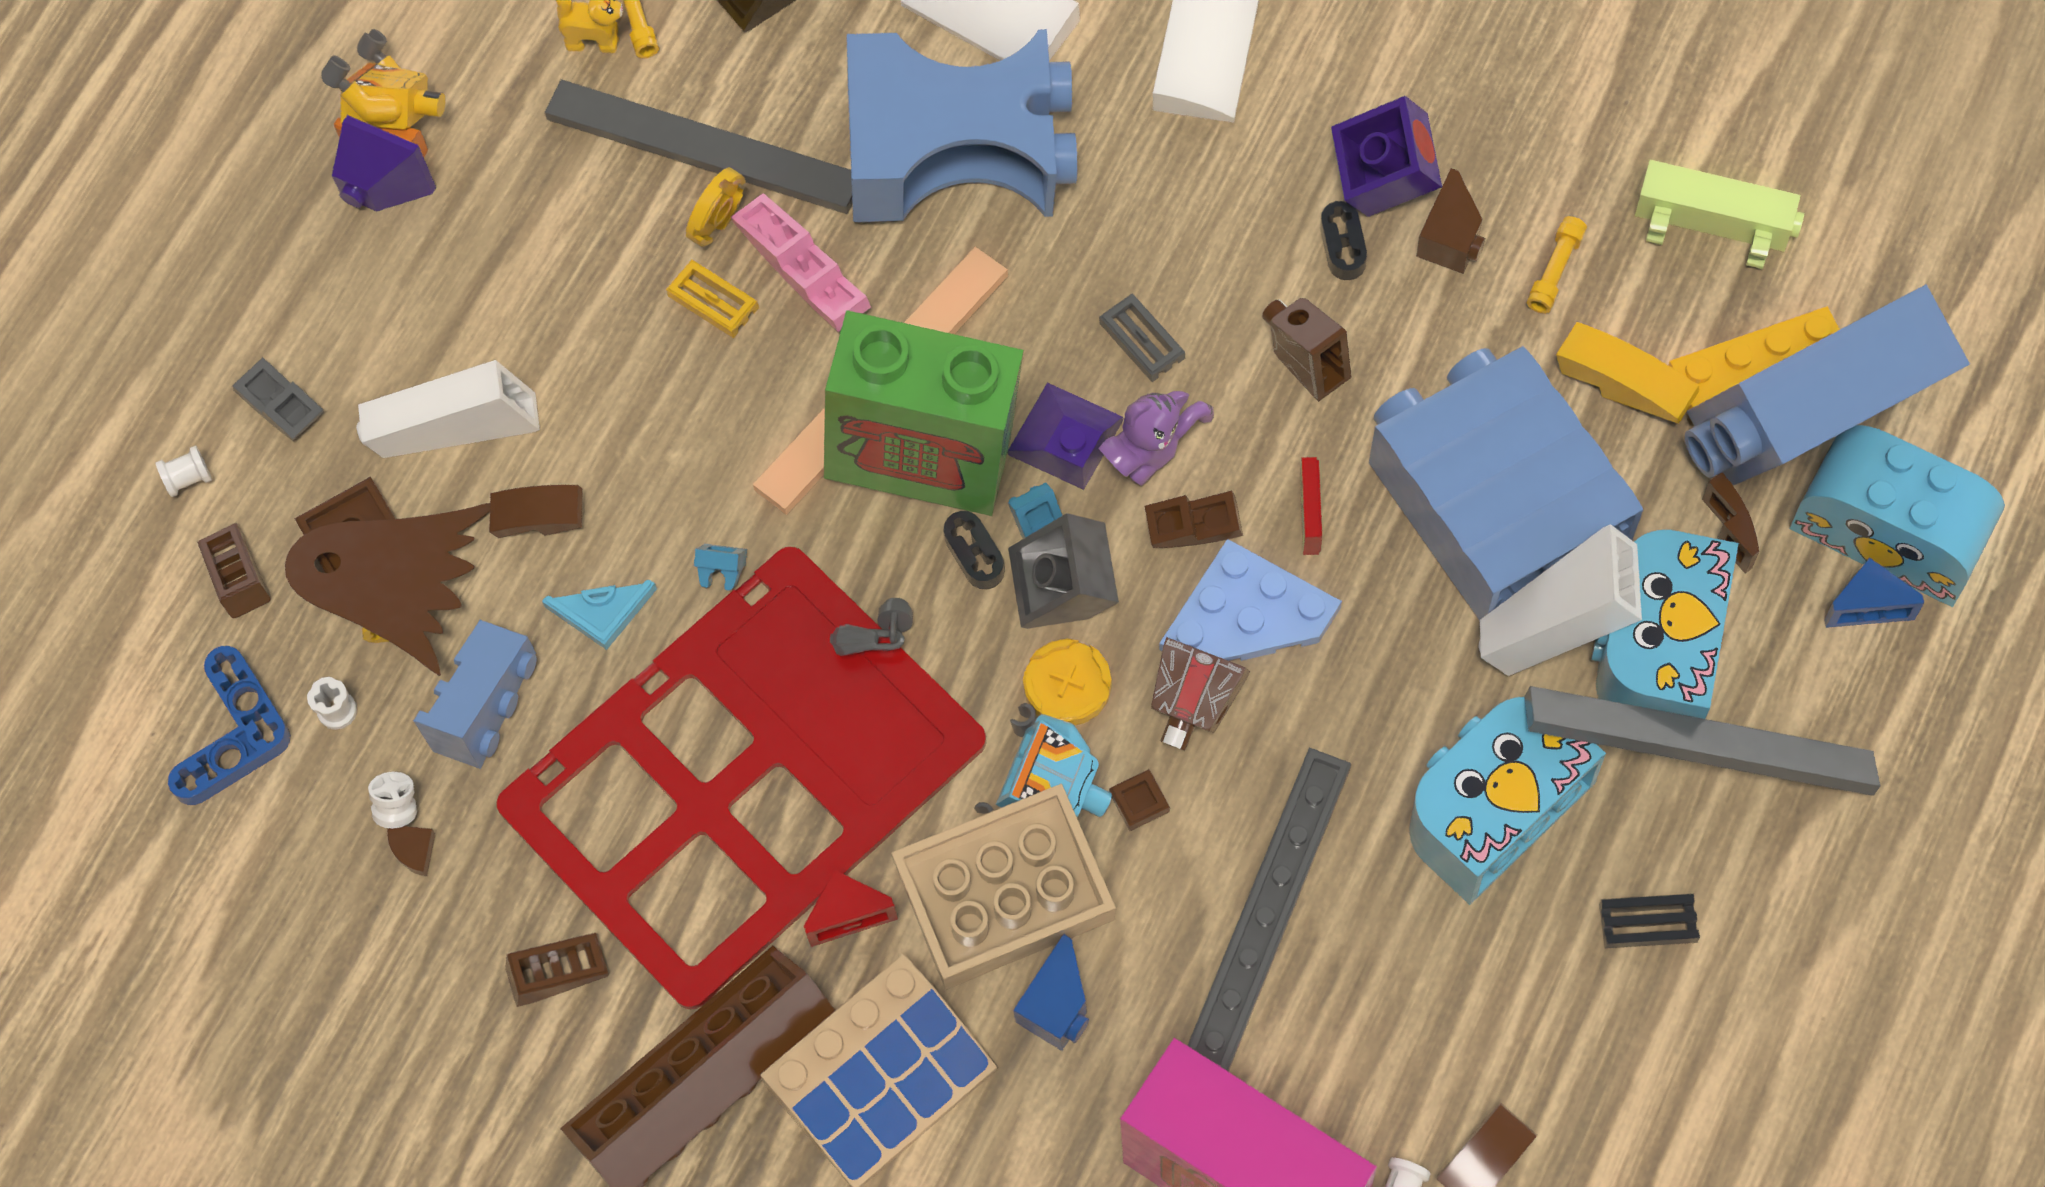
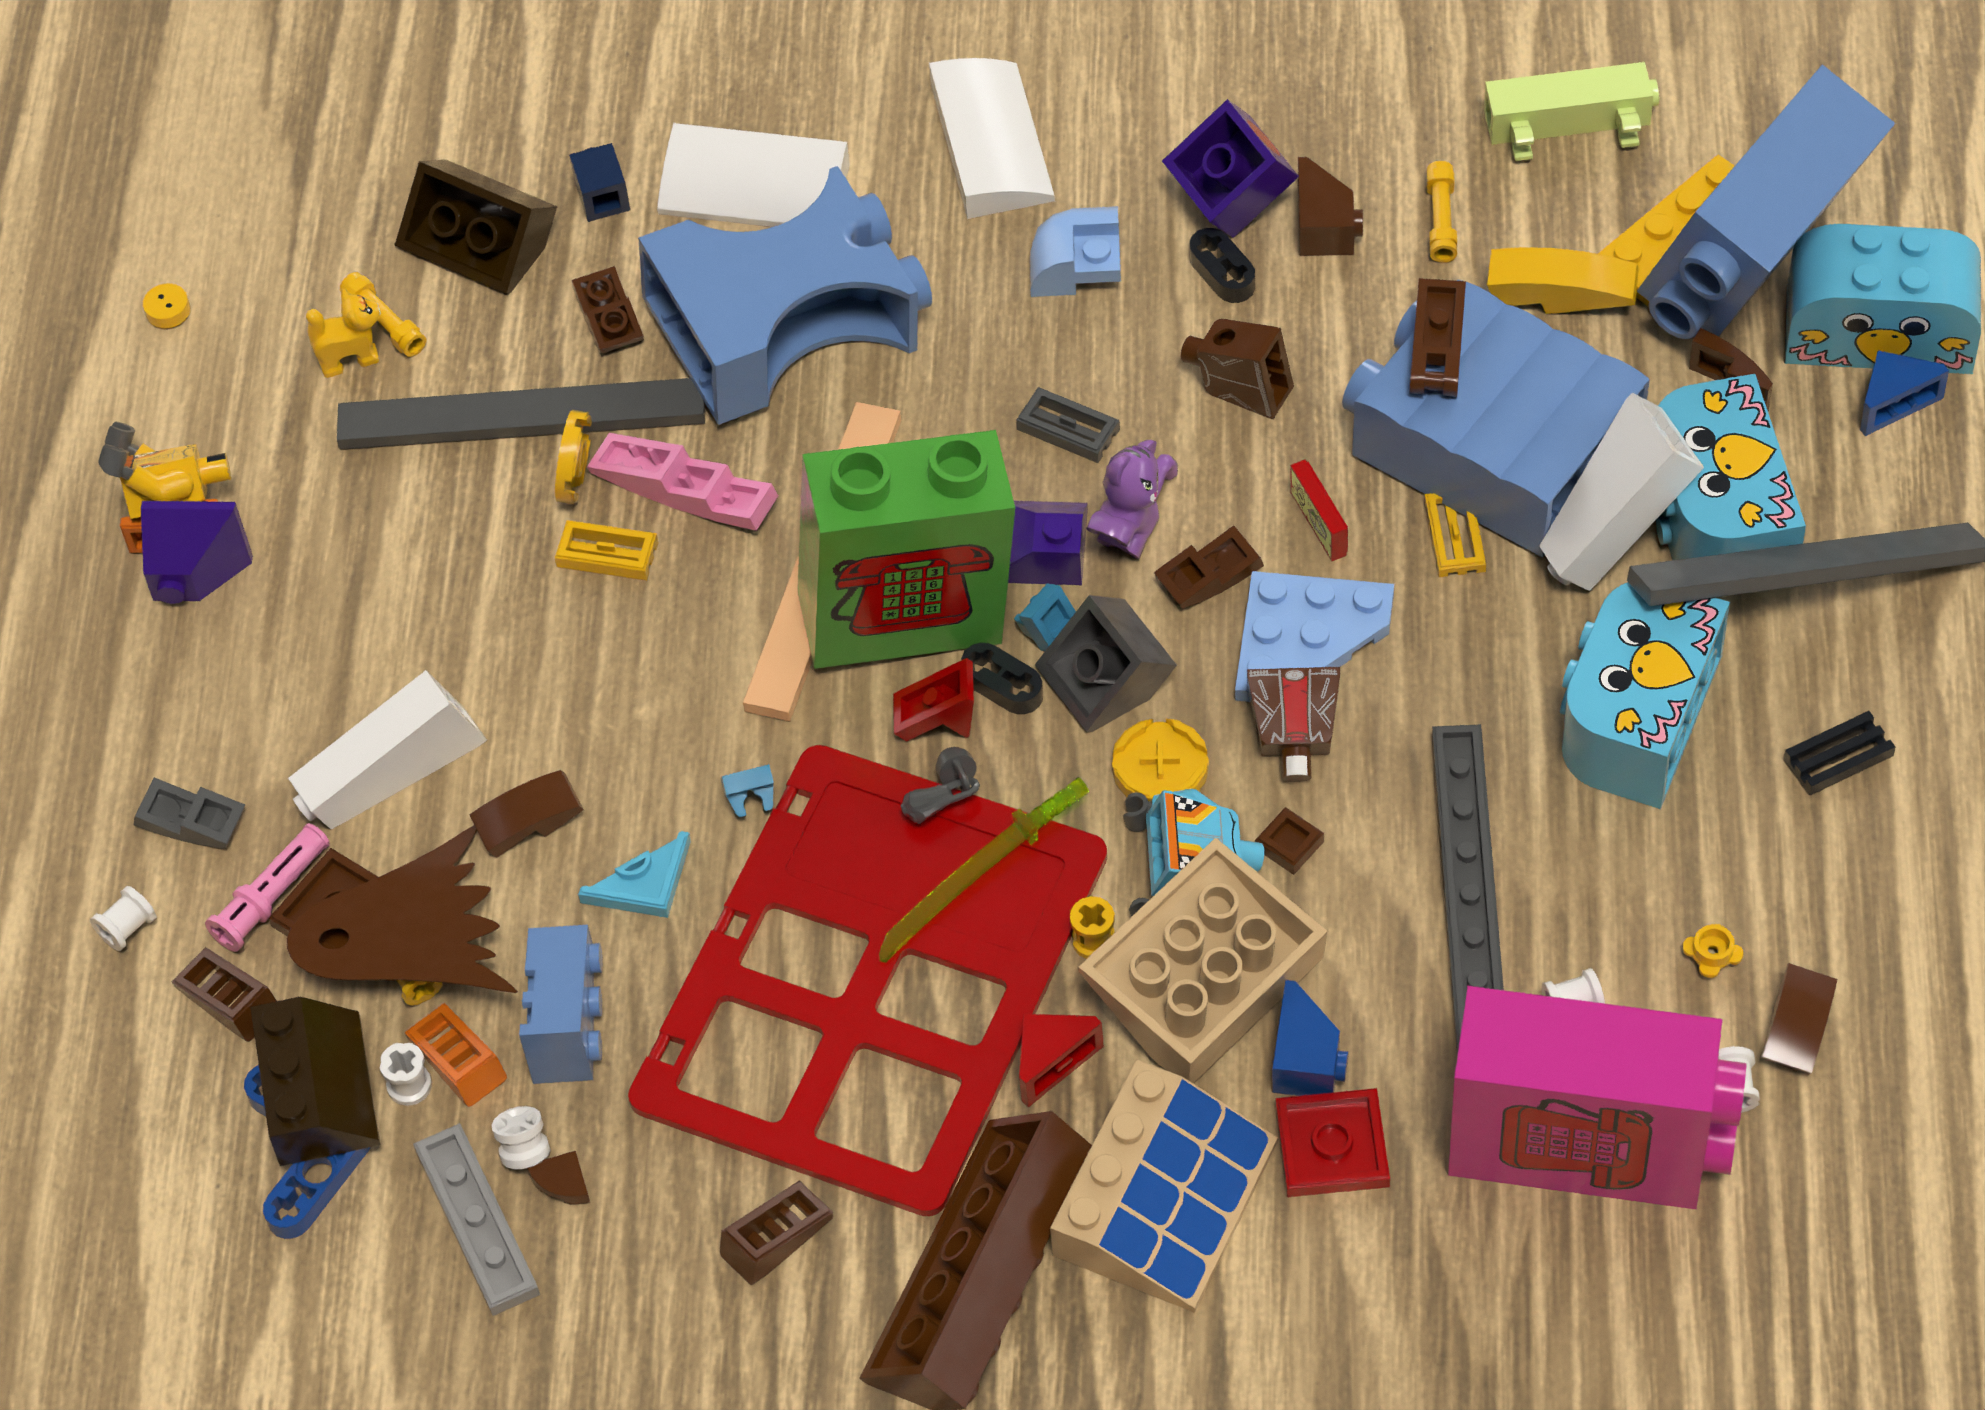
camera: 25 degrees left, 10 degrees down
(252, 680) = (314, 1079): none -> dark brown slope
(287, 500) = (254, 901): none -> bright pink pin
(331, 853) = (476, 1219): none -> light grey tile
(389, 726) = (472, 1078): none -> orange slope
(815, 80) = (607, 310): none -> reddish brown slope
(870, 713) = (1022, 829): none -> clear neon green sword
(904, 552) = (935, 701): none -> red slope
(930, 798) = (1091, 924): none -> yellow bush
(1040, 1091) = (1332, 1142): none -> red tile
(1225, 179) = (1075, 249): none -> light blue brick
(1303, 1051) = (1581, 988): none -> white bush
(1411, 605) = (1459, 563): none -> yellow tile
(1454, 1047) = (1715, 937): none -> yellow plate
(1472, 396) = (1437, 335): none -> reddish brown plate

